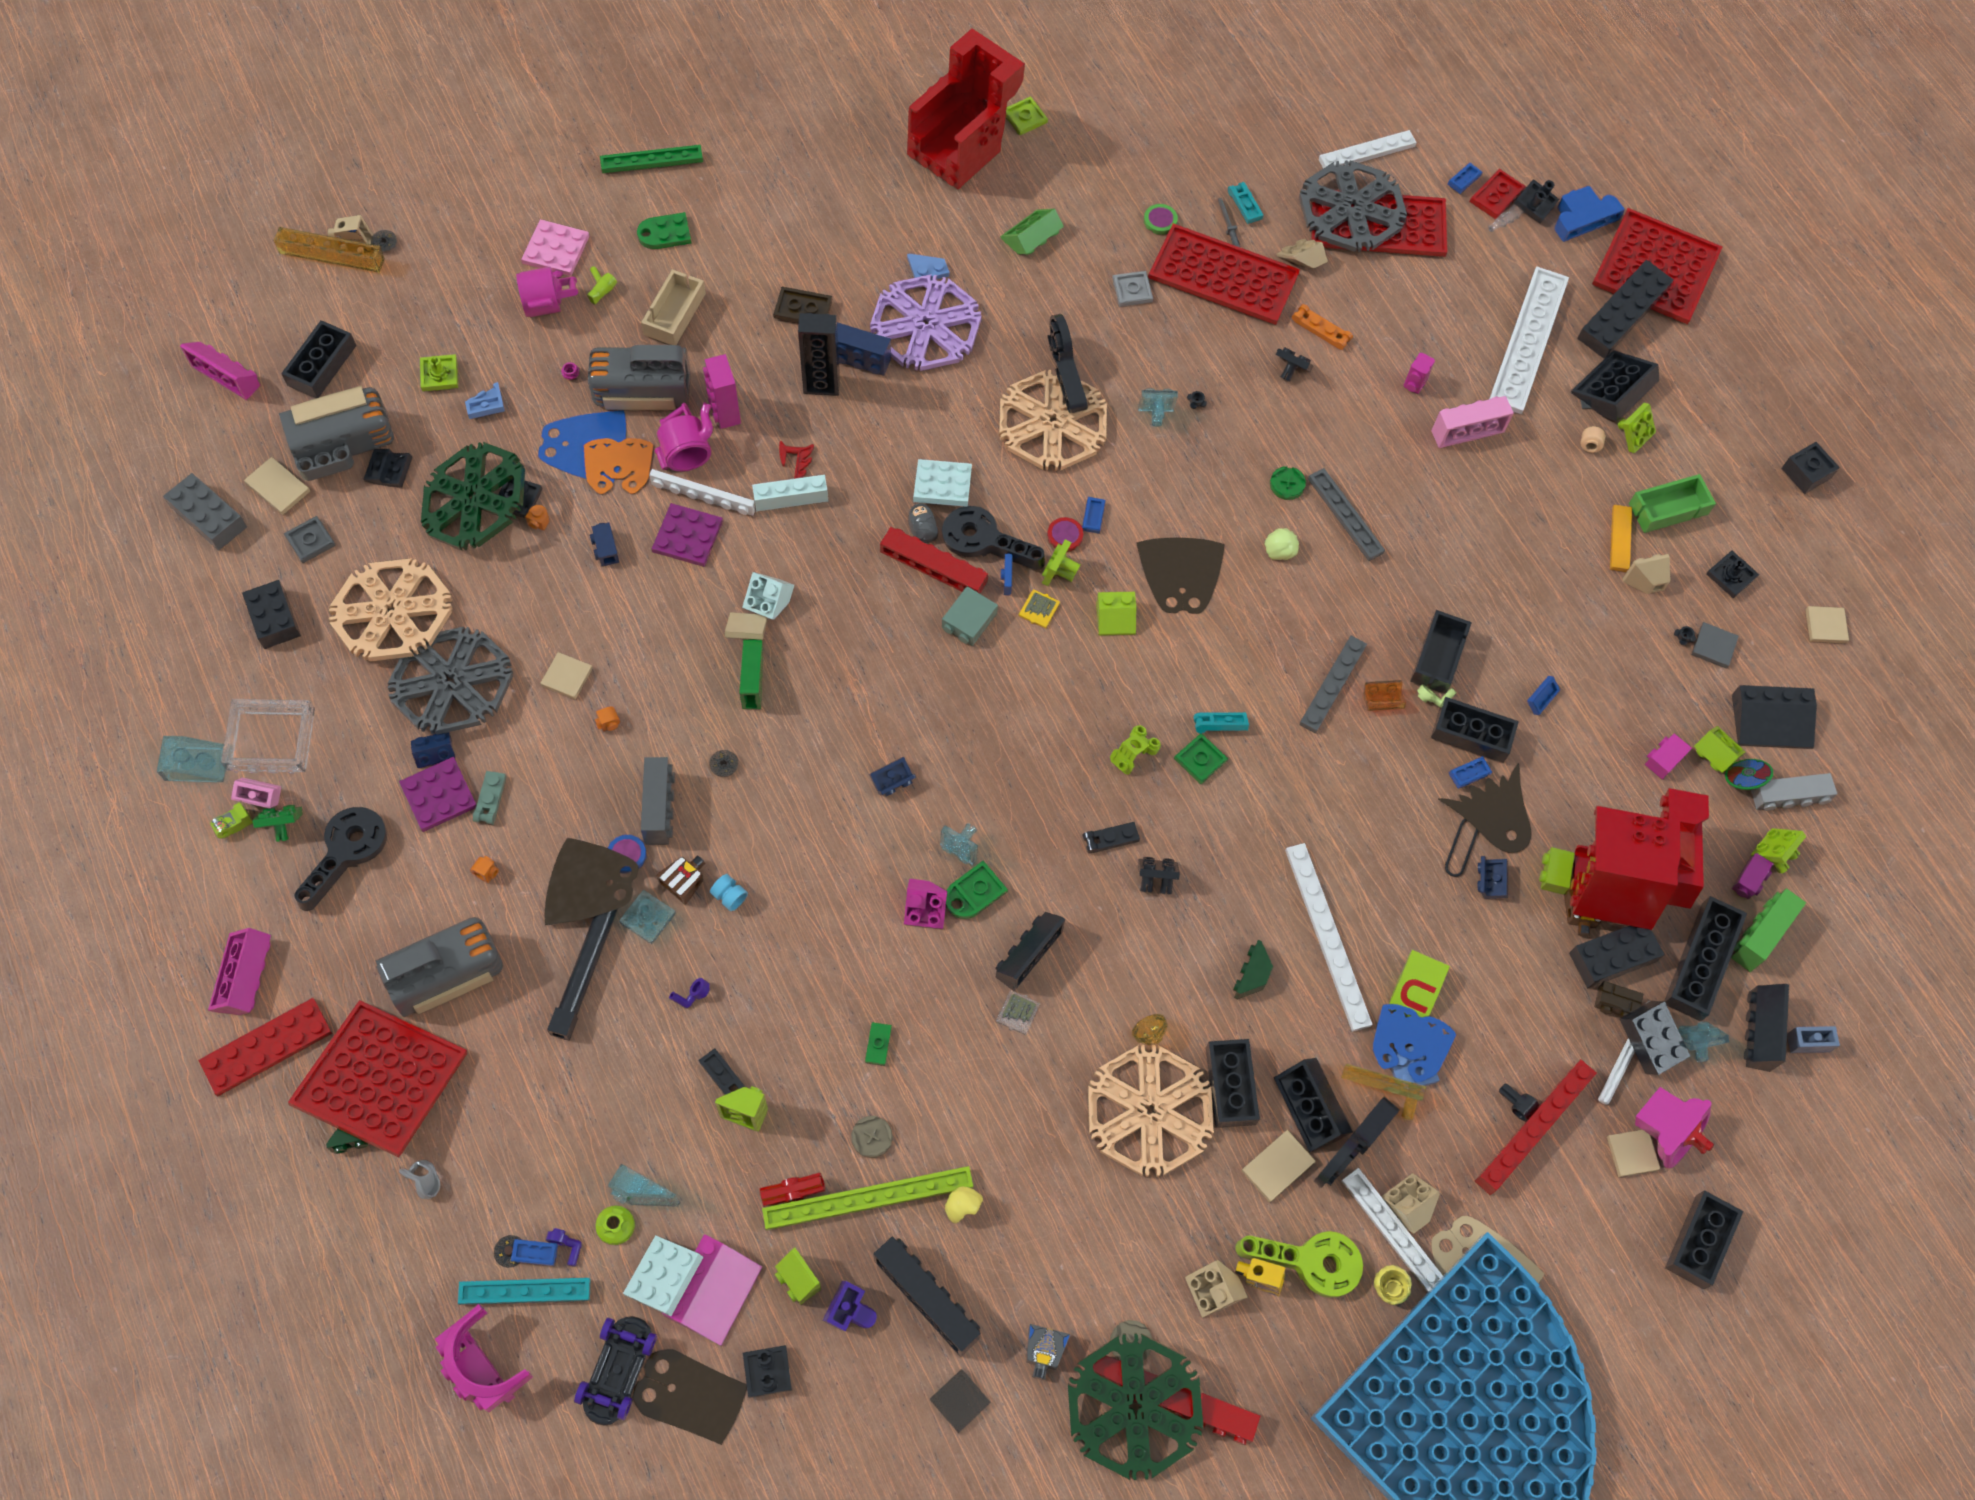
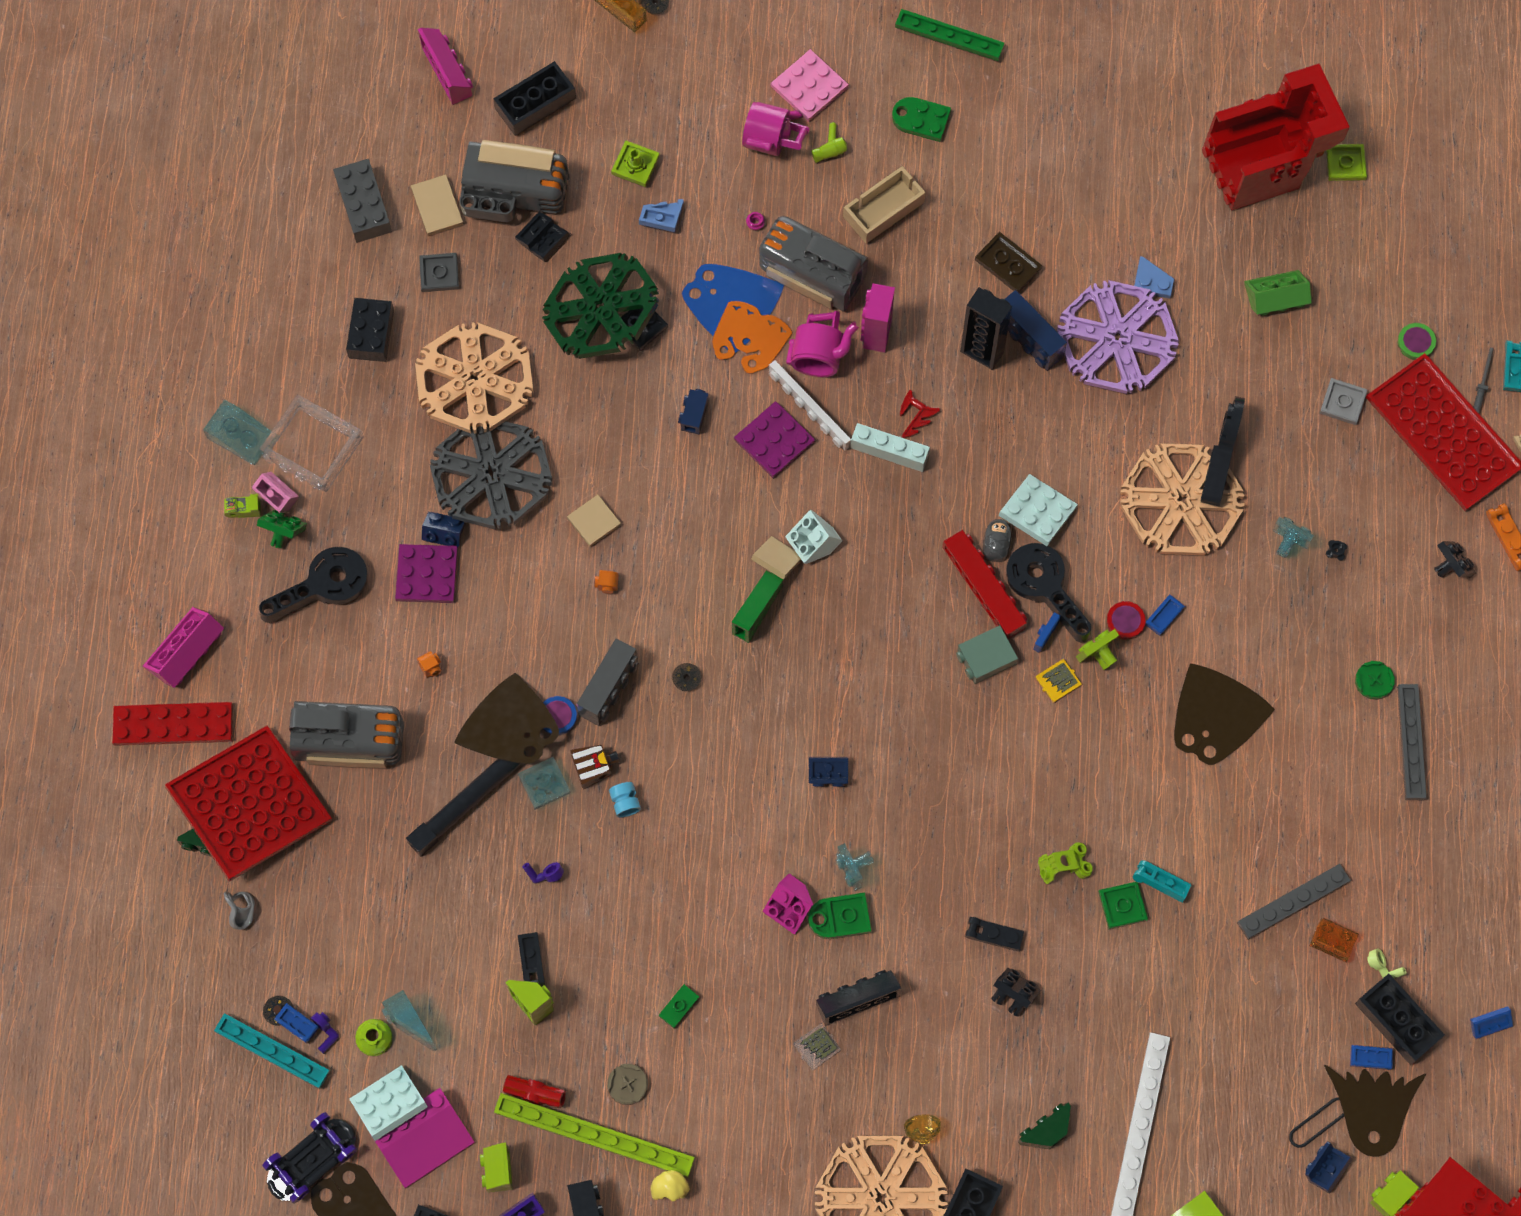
camera: 35 degrees right, 5 degrees up
(471, 1369) = (196, 1091): dark pink piece -> none
(489, 797) = (468, 600): sand green plate -> none
(537, 517) = (648, 354): orange plate -> none
(1116, 613) = (1126, 724): lime slope -> none
(1282, 544) = (1328, 739): yellowish green hair -> none
(1441, 651) = (1415, 926): black piece -> none

